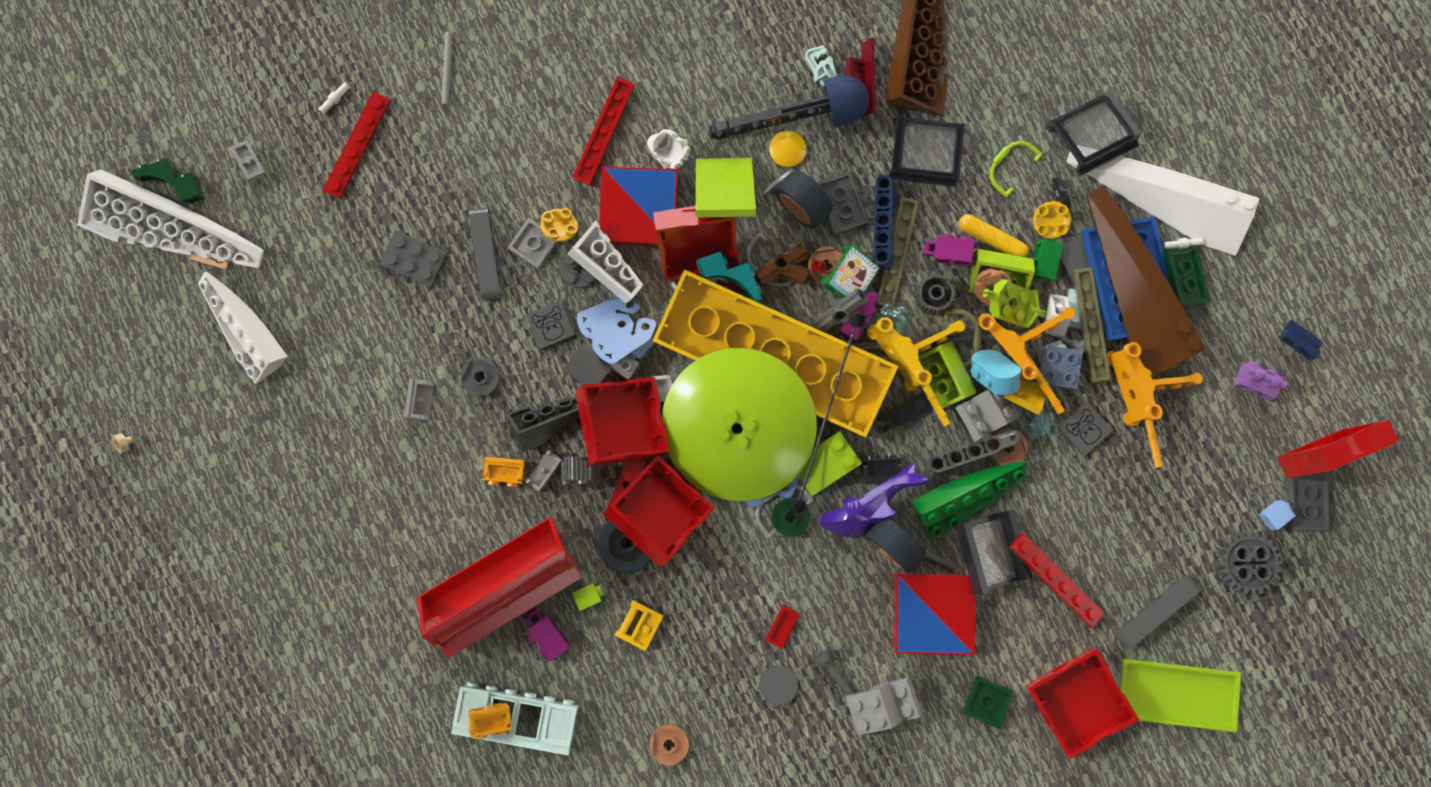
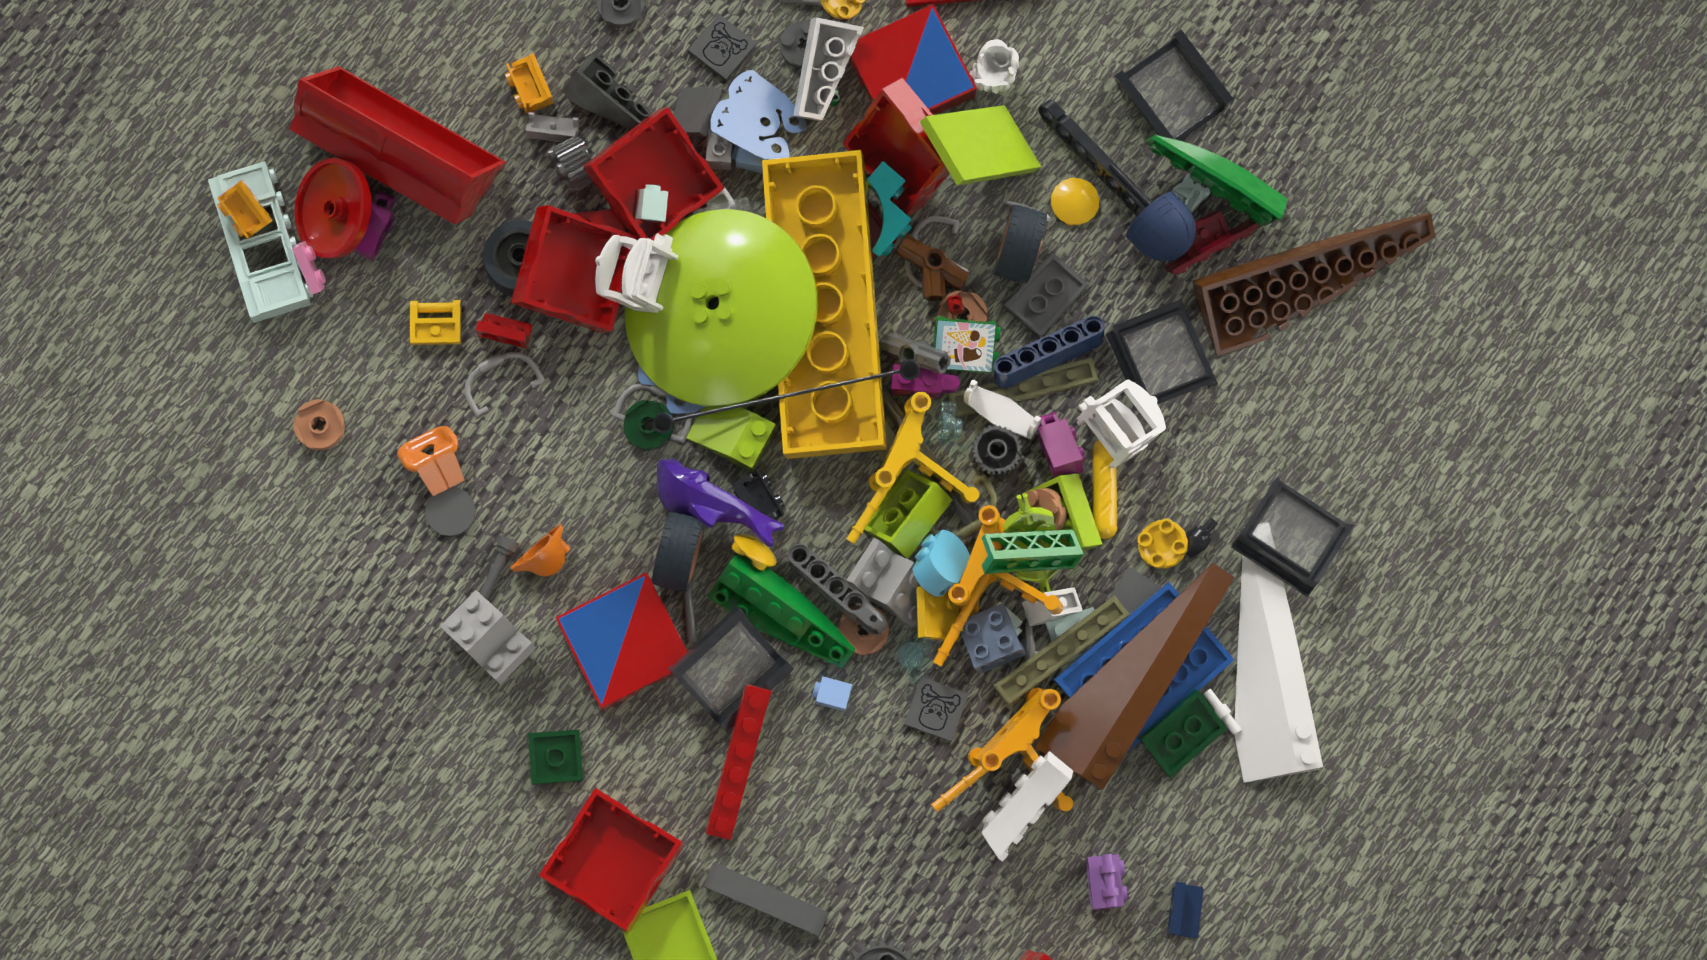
camera: 55 degrees right, 5 degrees down
(522, 656) = (333, 208): none -> red dish
(548, 694) = (305, 257): none -> bright pink plate
(588, 596) = (438, 248): lime brick -> none
(640, 433) = (651, 204): none -> light aqua brick
(671, 580) = (504, 330): none -> red bracket
(688, 601) = (491, 363): none -> light grey piece
(689, 465) = (641, 271): none -> white animal
(747, 40) = (1175, 89): none -> piece
(748, 678) = (439, 469): none -> orange piece
(782, 627) = (518, 482): red tile -> none
(832, 41) = (1223, 178): none -> green wedge
(847, 636) = (548, 558): none -> orange hat
(906, 411) = (840, 492): black hinge -> none
(909, 274) = (1001, 411): none -> white piece
(916, 494) = (755, 550): none -> yellow dish
(961, 204) = (1127, 436): none -> white animal
(999, 158) = (1206, 448): lime piece -> none
(1029, 311) = (1035, 559): none -> green fence
(1041, 492) = (832, 693): none -> light blue brick
(1046, 259) = (1110, 561): green hinge -> none
(1189, 405) = (1025, 803): none -> white wedge

